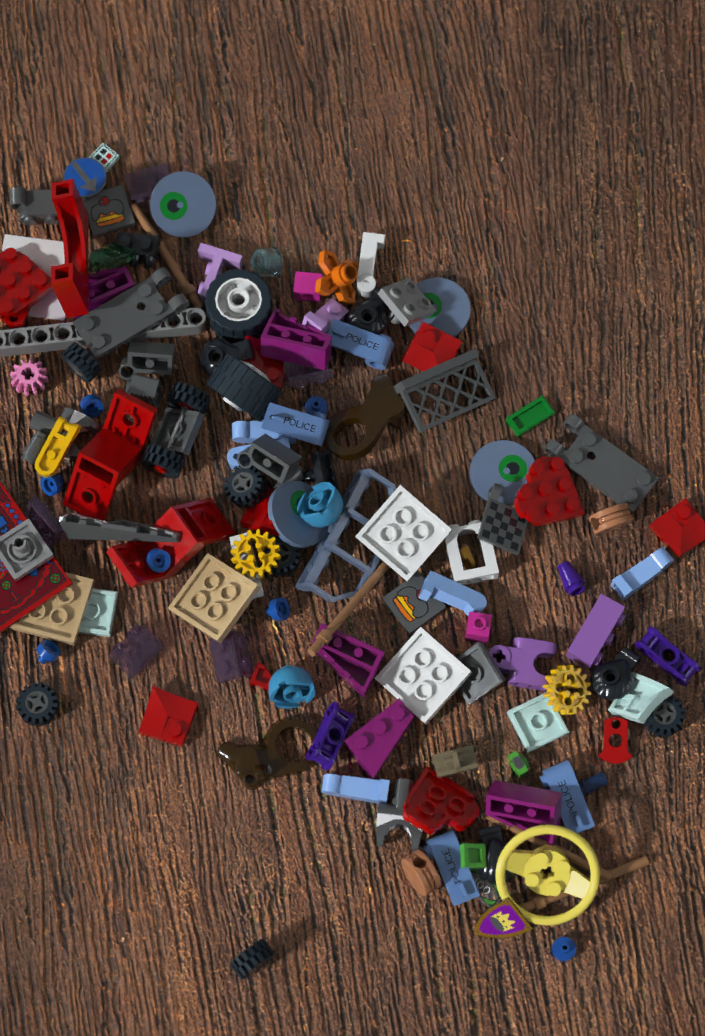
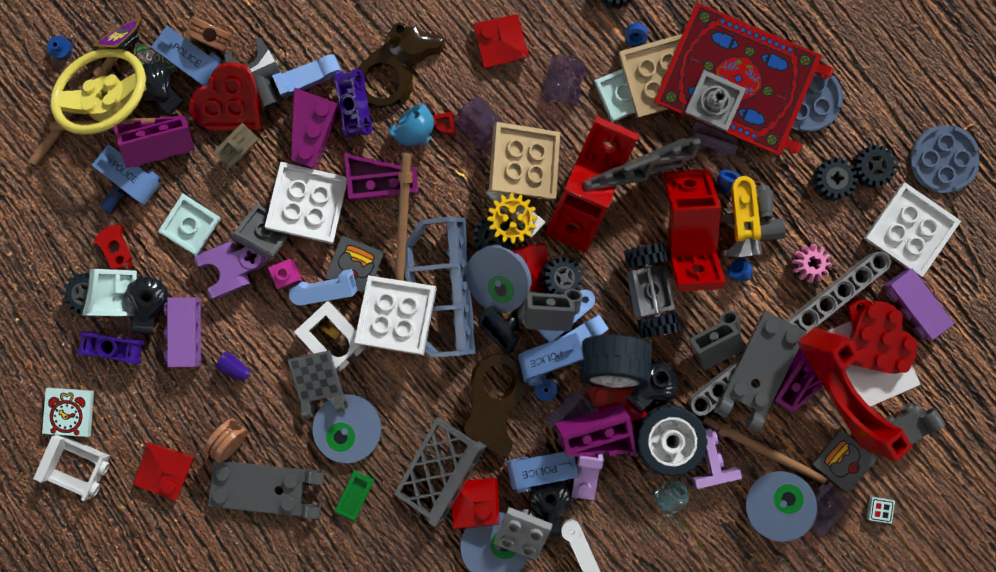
camera: 145 degrees right, 15 degrees up
(81, 362) = (774, 301): black wheel -> none
(88, 176) = (885, 479): blue piece -> none
(110, 257) = (812, 414): clear green bracket -> none
(144, 245) = (795, 441): black plate -> none
(145, 389) = (702, 307): dark grey brick -> none
(158, 560) = (590, 158): blue tile -> none
(278, 609) = (465, 188): blue tile -> none
(305, 286) = (620, 497): dark pink brick -> none
(321, 506) = (482, 295): dark azure cylinder -> none
(337, 277) = (598, 521): orange plant -> none
(473, 855) = (171, 71): bright green plate -> none
(518, 764) = (182, 177): bright green plate -> none
(548, 494) = (294, 431): red plate -> none
(557, 698) = (173, 255): yellow gear -> none
(642, 573) = (174, 409): light blue leg -> none

